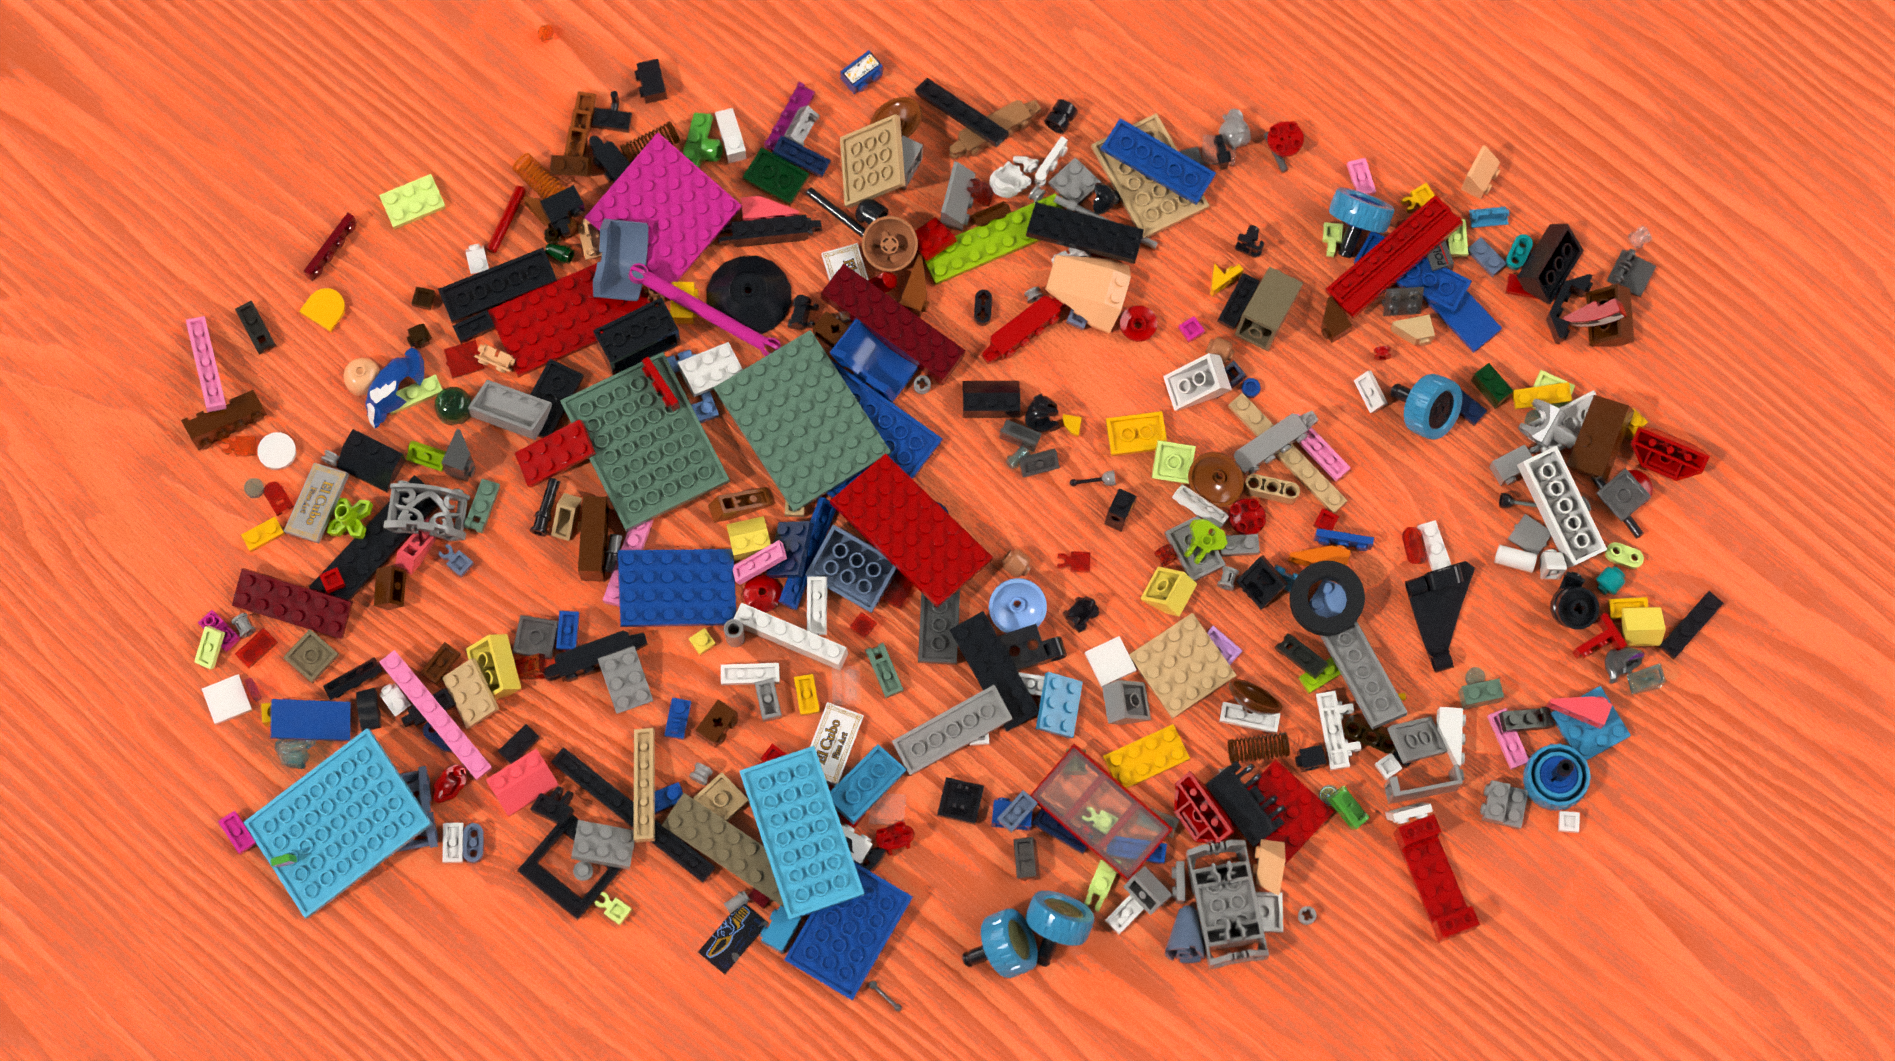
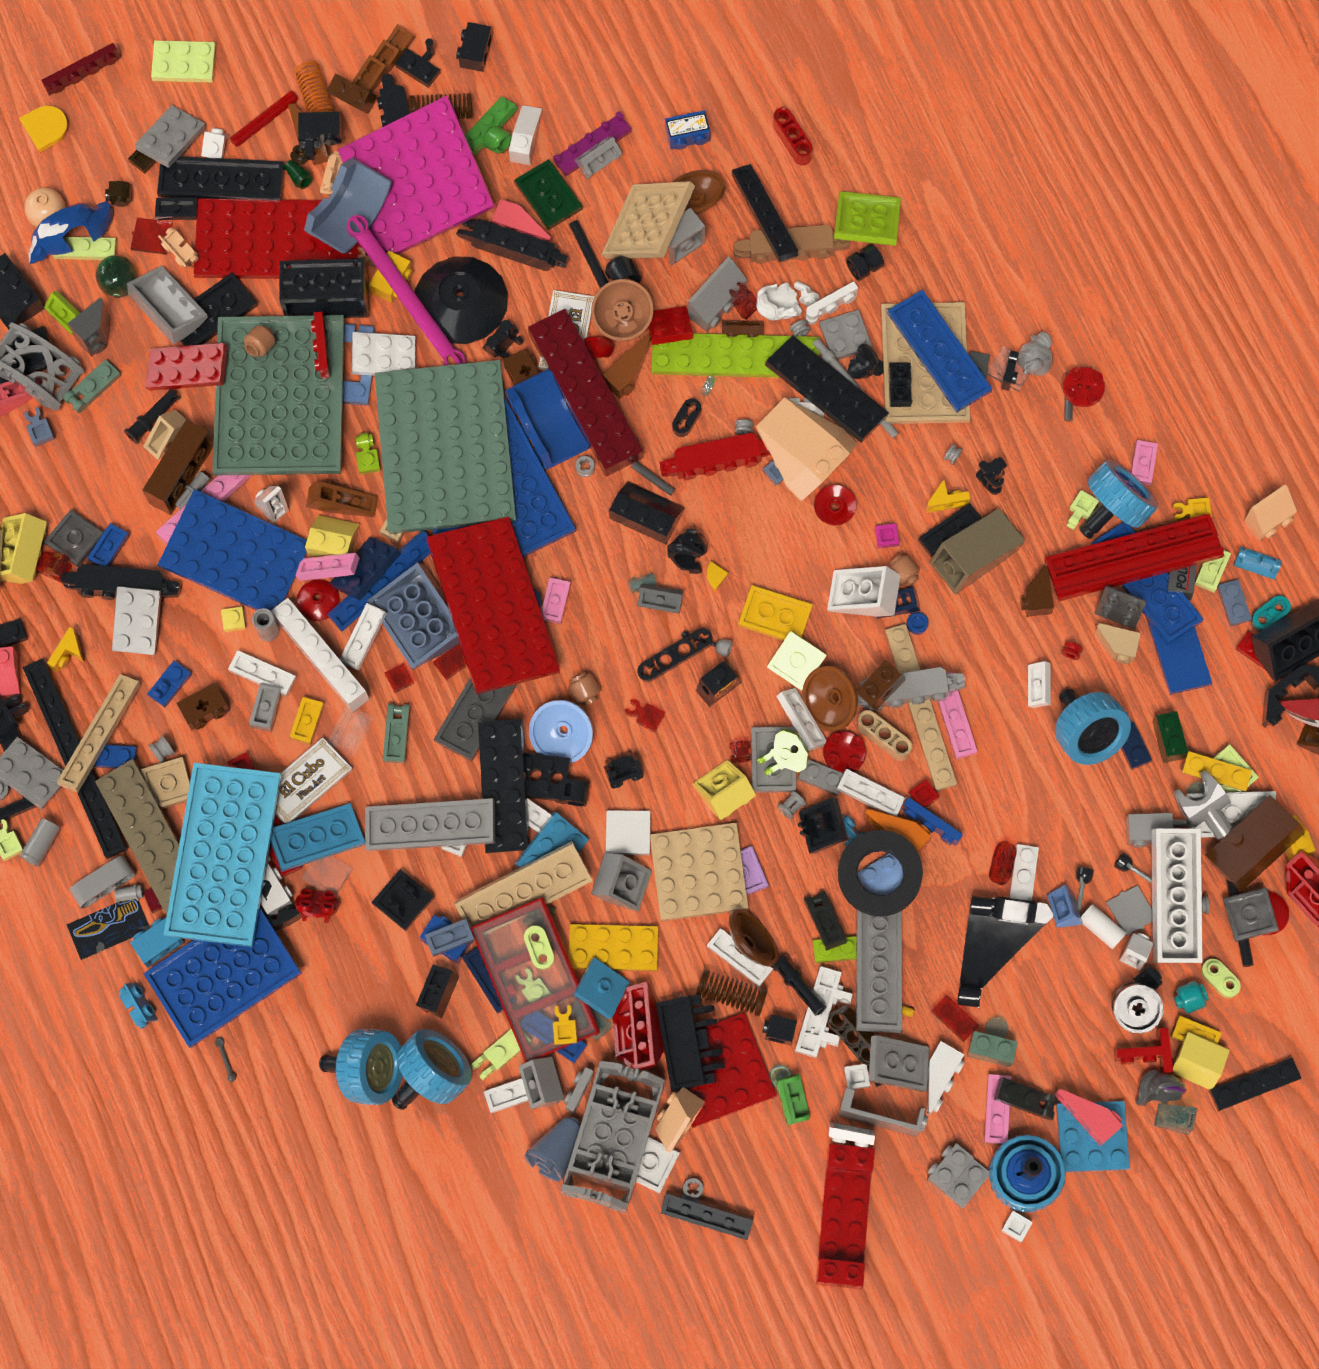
camera: 30 degrees right, 0 degrees up
(436, 269) = (170, 136): none -> light grey plate
(580, 727) = (68, 646): none -> yellow slope
(607, 404) = (259, 341): none -> nougat head
(642, 896) = (40, 842): none -> light grey pin
(685, 531) = (271, 503): none -> white slope
(710, 903) = (102, 882): none -> light grey beam
(743, 460) = (367, 459): none -> lime plate
(798, 989) = (132, 996): none -> dark azure hinge
(801, 156) = (583, 185): dark blue plate -> none
(953, 47) = (791, 127): none -> red beam
(956, 503) = (555, 600): none -> bright pink plate
(981, 369) = (653, 478): none -> dark grey piece
(987, 274) = (708, 385): none -> clear light blue tile
(1020, 435) = (656, 562): dark grey panel -> none
(1045, 79) = (867, 218): none -> lime plate
(1067, 727) = (544, 877): none -> tan plate
(1072, 501) = (672, 651): none -> black beam
(1095, 782) = (539, 948): none -> yellowish green plate
(1140, 203) = (900, 384): none -> black slope
(1146, 840) = (564, 1030): none -> yellow plate
(1156, 793) = (601, 988): none -> dark azure plate
(1209, 239) = (953, 454): none -> light grey bush
(1253, 450) = (880, 685): none -> reddish brown brick
(1284, 539) = (870, 793): none -> white plate
(1300, 713) = (793, 978): none -> black pin
(1329, 929) = (707, 1214): none -> black plate
(1440, 684) = (955, 1018): none -> clear red plate
(1479, 557) = (1064, 907): none -> medium blue slope
(1482, 526) = (1083, 876): none -> black hinge

